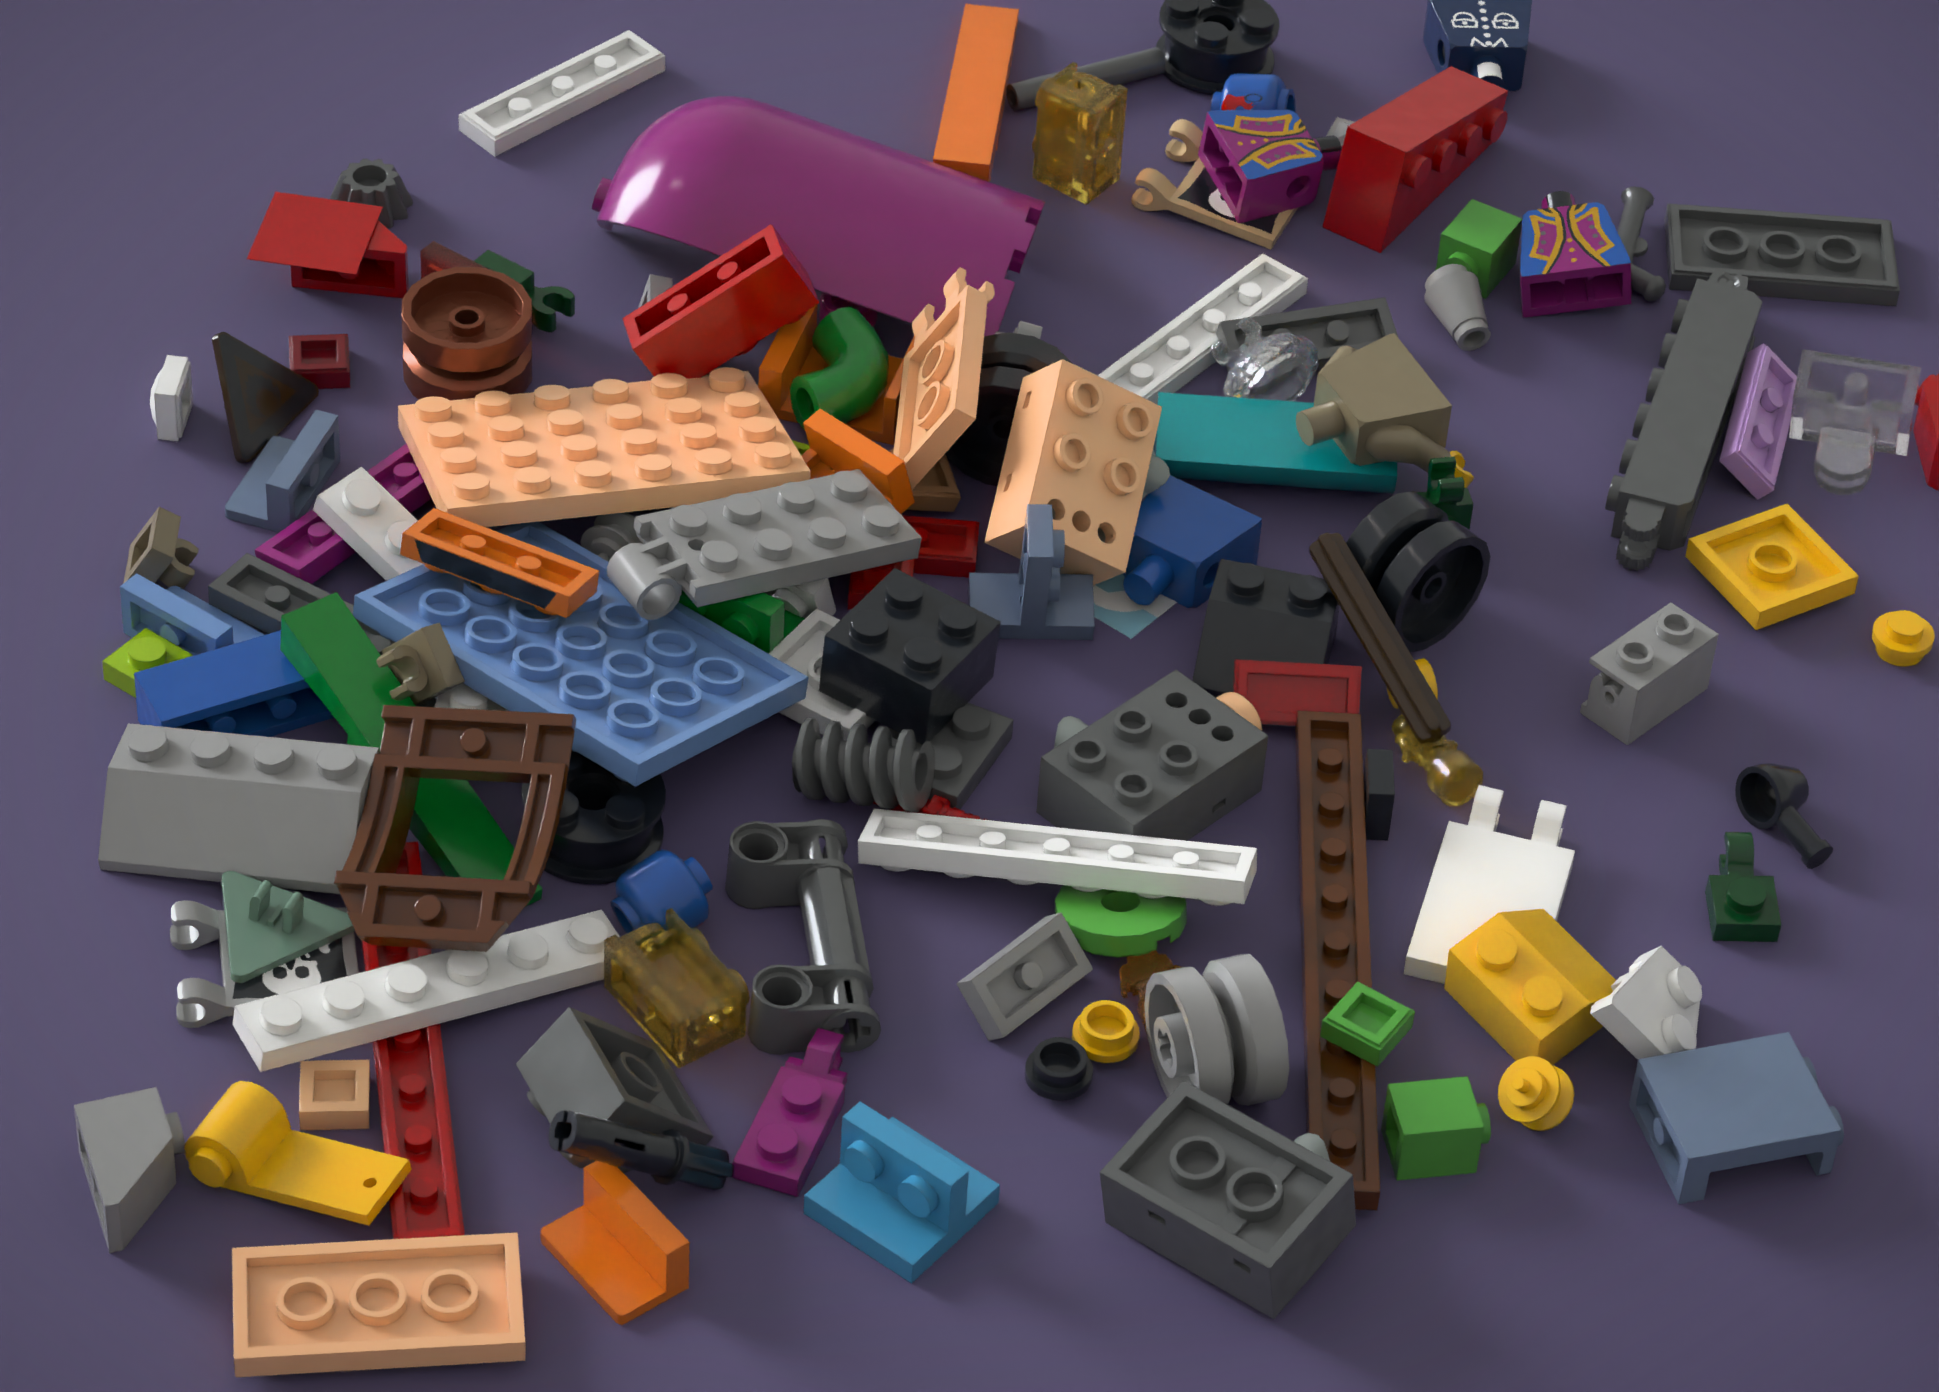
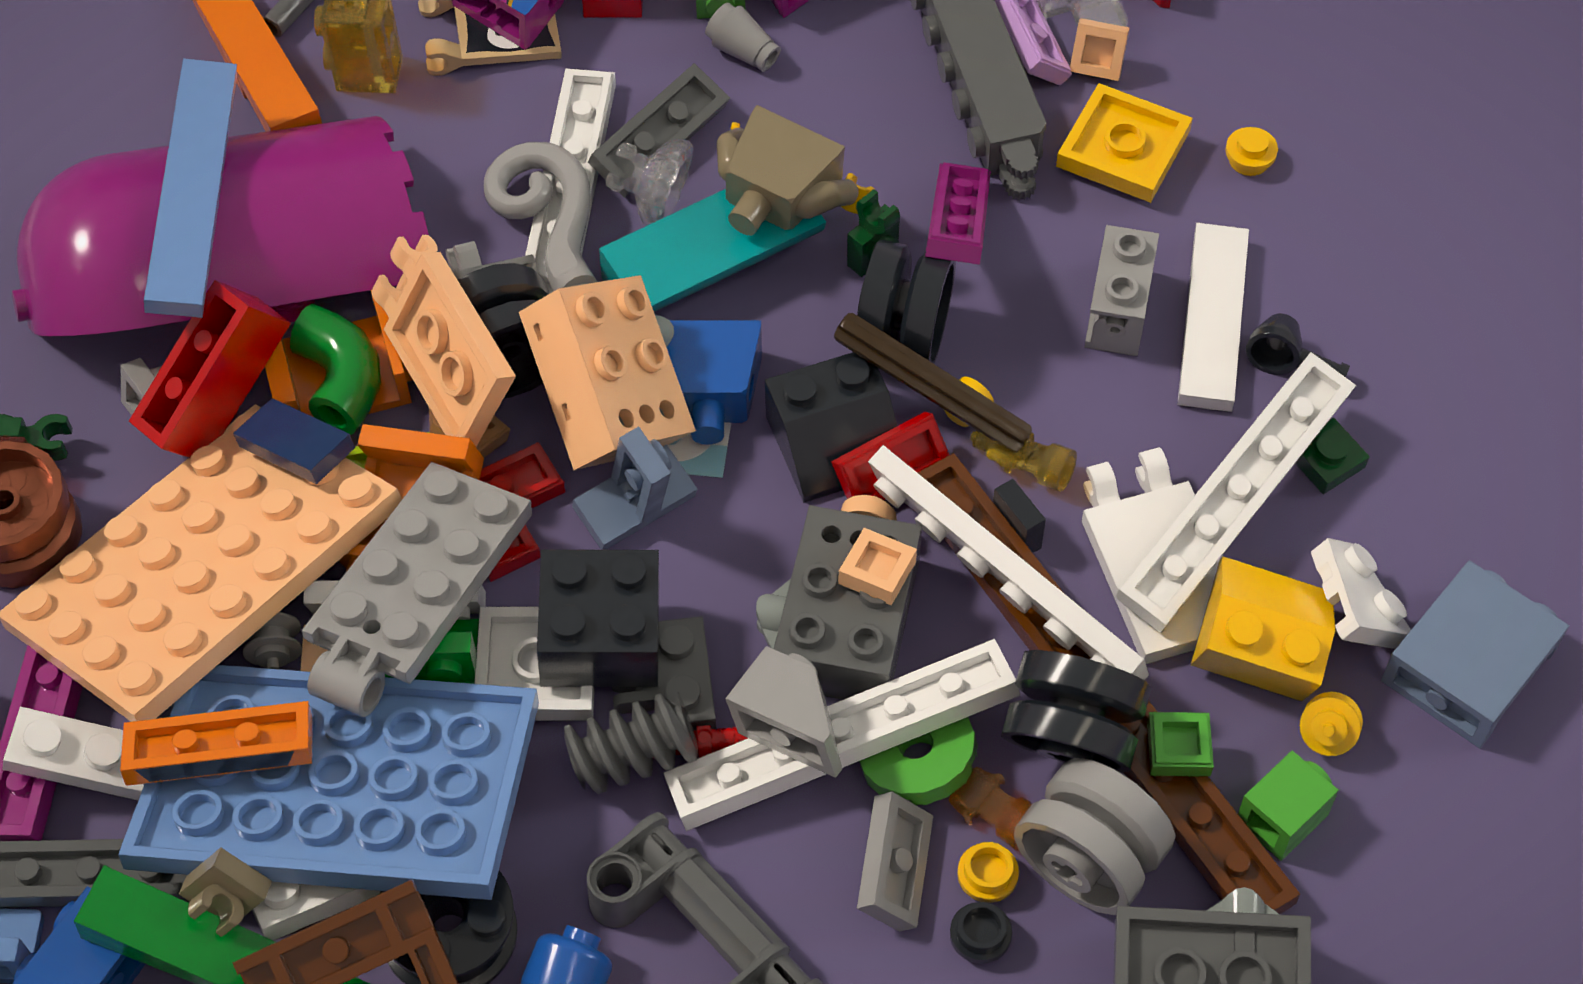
camera: 30 degrees left, 15 degrees up
(751, 396) = (294, 440): none -> dark blue tile
(809, 148) = (191, 189): none -> medium blue tile
(1016, 799) = (786, 710): none -> light grey slope
(1163, 360) = (563, 252): none -> light grey plant
(1193, 736) = (877, 566): none -> light nougat tile
(1282, 919) = (1076, 709): none -> black wheel
(1322, 826) = (985, 553): none -> white plate
(1530, 523) = (959, 213): none -> magenta tile
(1607, 864) = (1234, 492): none -> white plate
(1738, 738) = (1213, 317): none -> white tile
(1816, 479) = (1099, 49): none -> light nougat tile

